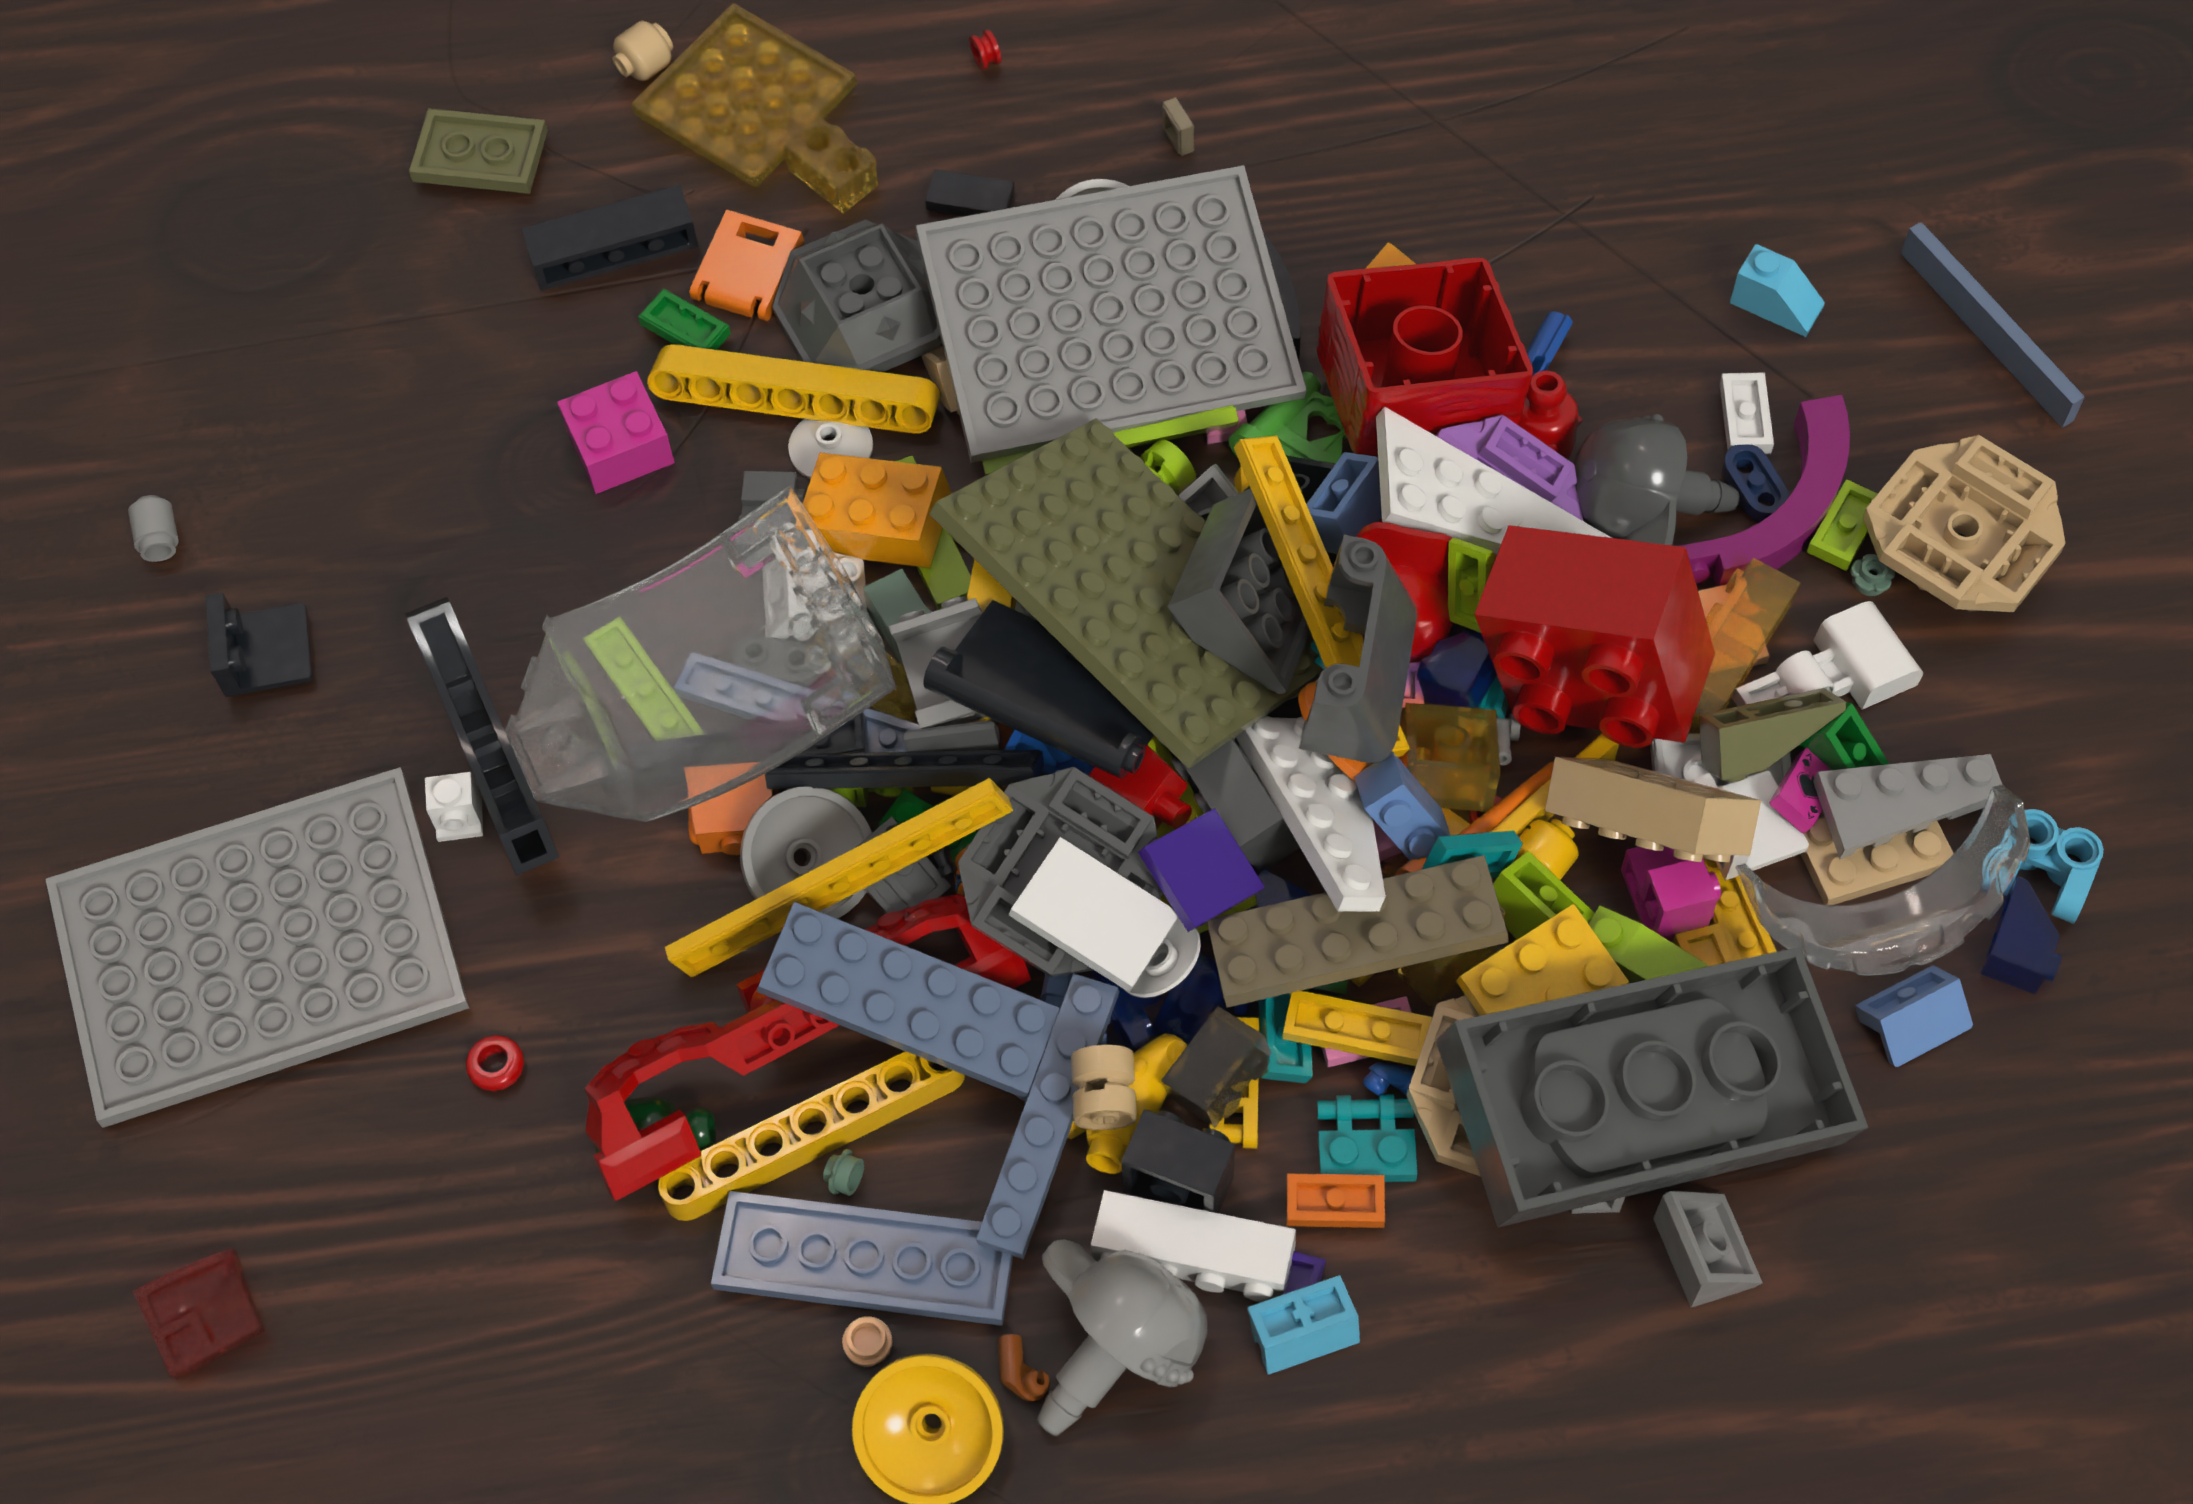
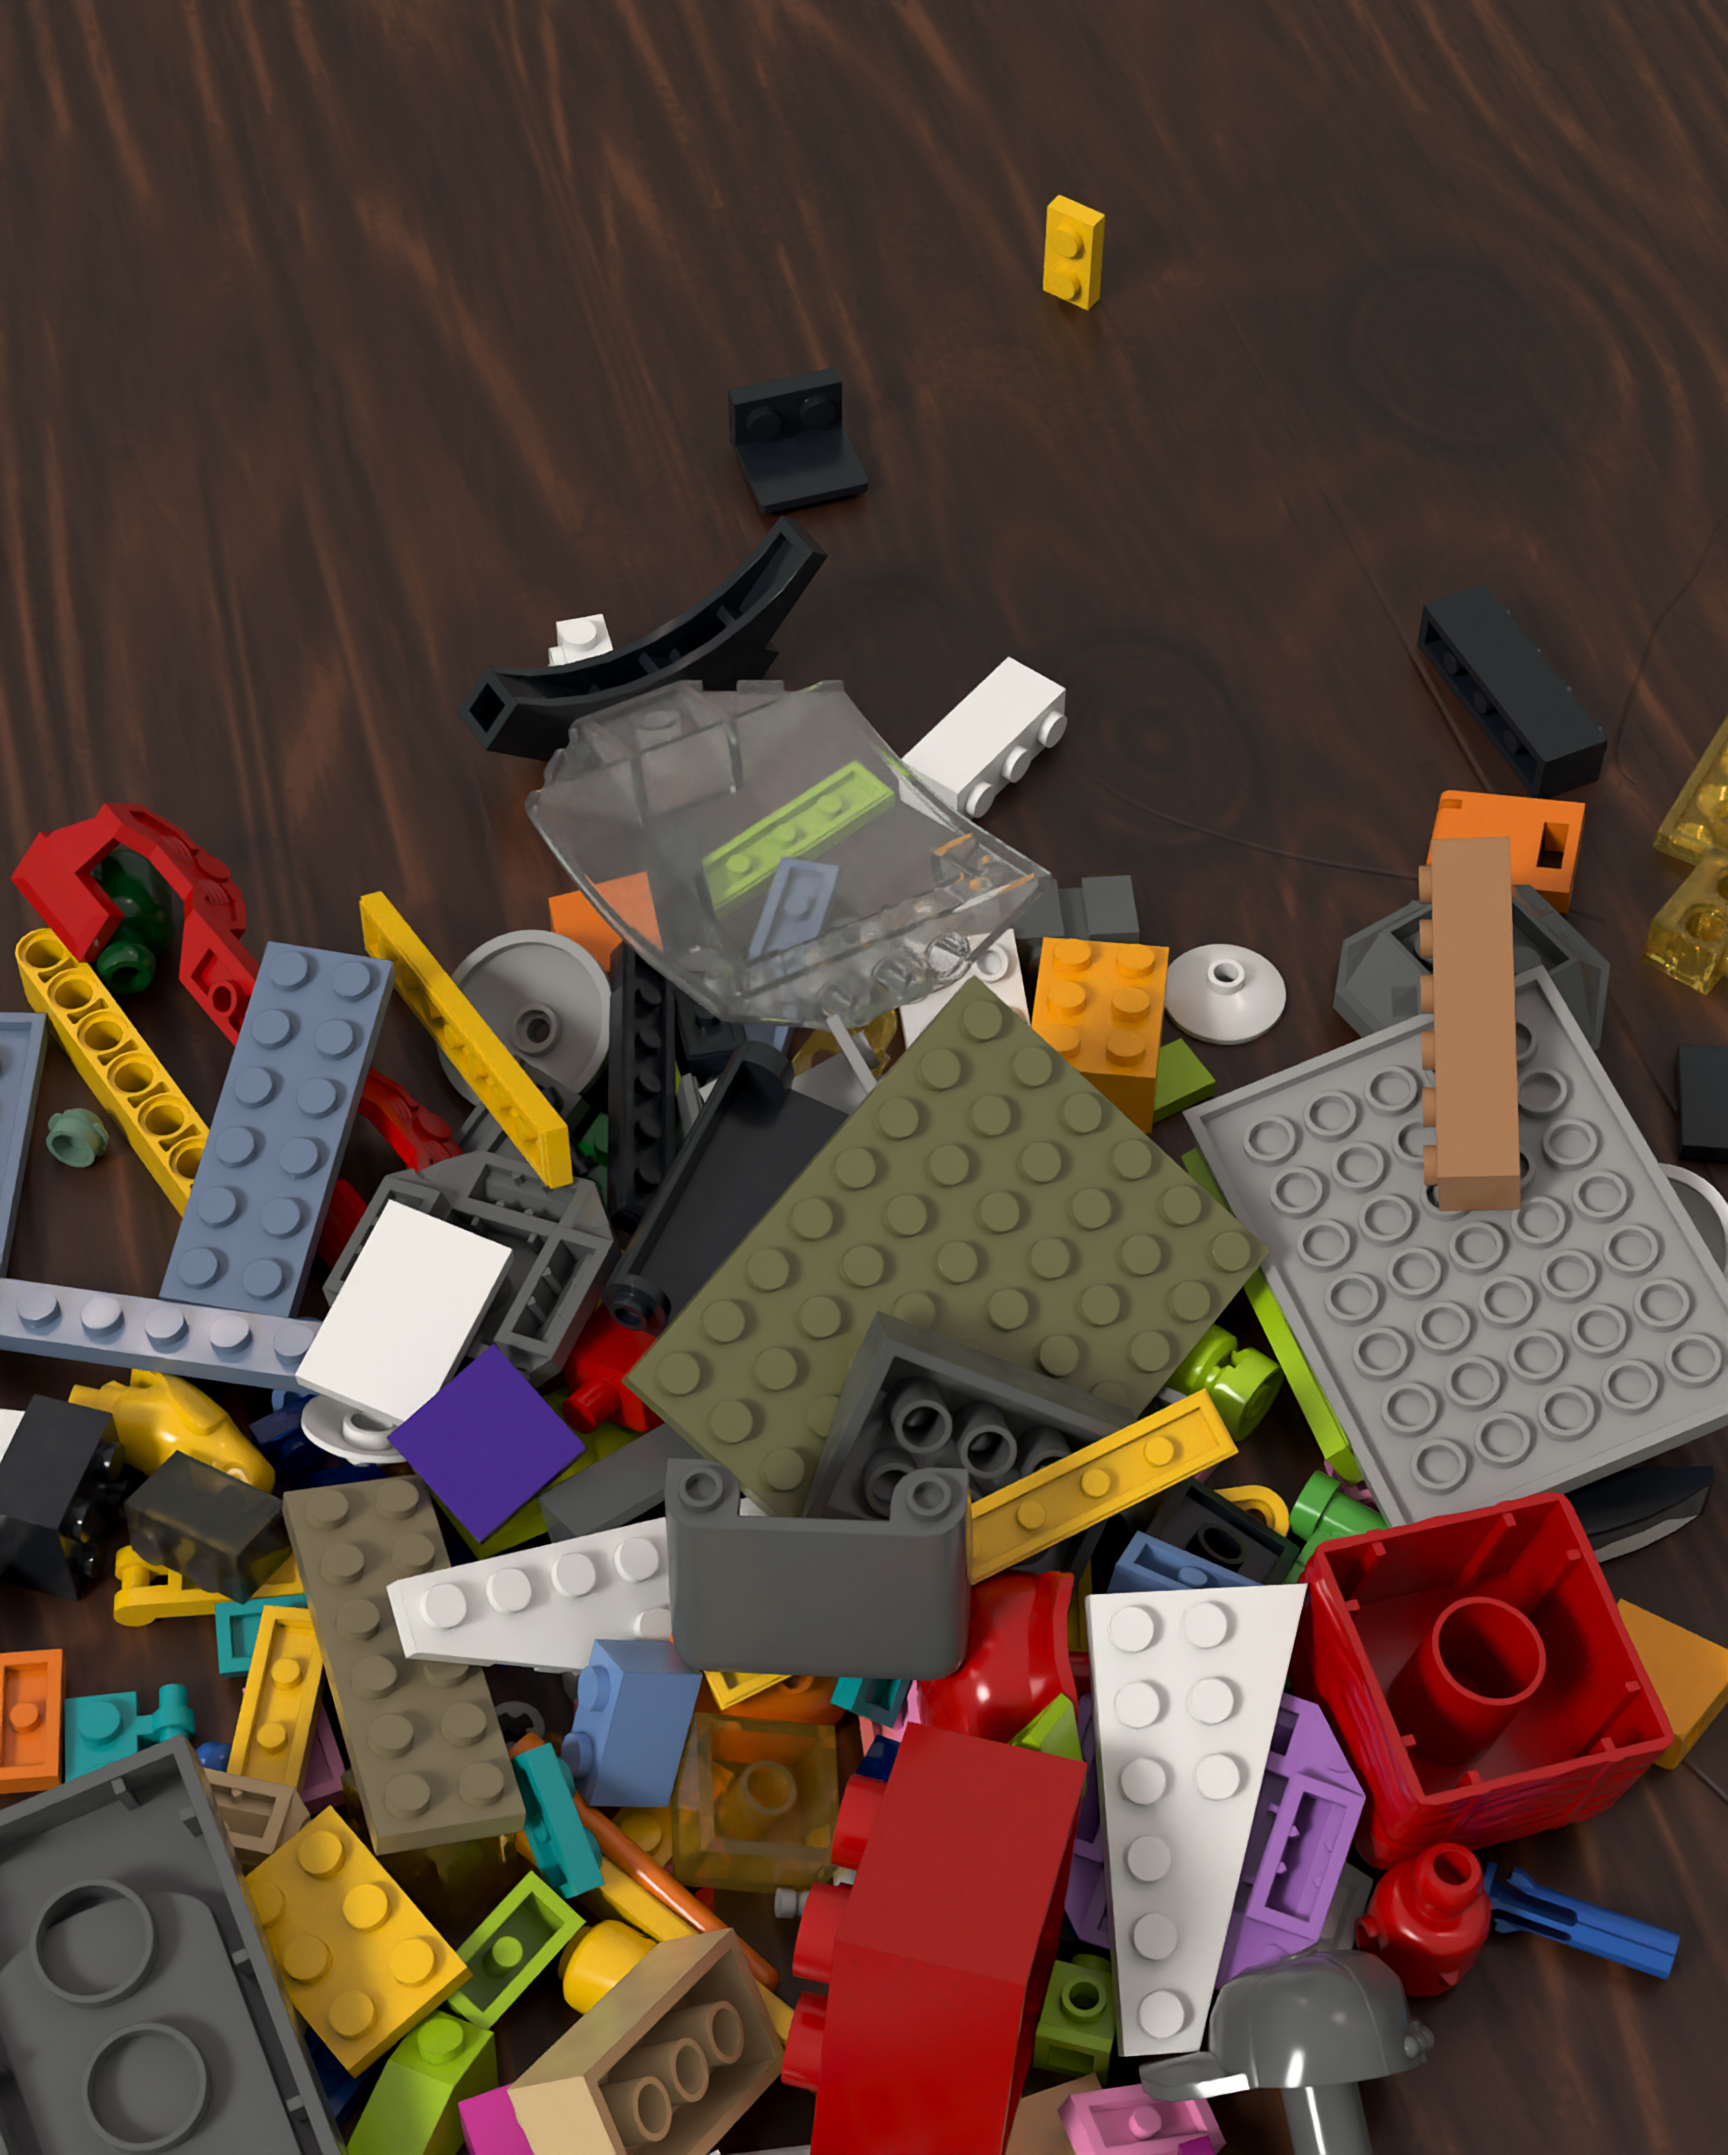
camera: 80 degrees right, 10 degrees down
(110, 431) = (1073, 252): none -> yellow plate
(153, 528) = (954, 327): light grey brick -> none
(253, 946) = (385, 524): light grey plate -> none
(478, 151) = (1624, 537): olive plate -> none
(504, 1077) = (237, 783): red piece -> none
(585, 548) = (990, 737): none -> white brick
(616, 432) = (1181, 740): dark pink brick -> none
(683, 322) = (1384, 795): green plate -> none
(794, 388) = (1294, 914): yellow beam -> none
(960, 265) = (1473, 1025): none -> medium nougat brick
(1103, 1090) = (145, 1363): tan wheel -> none

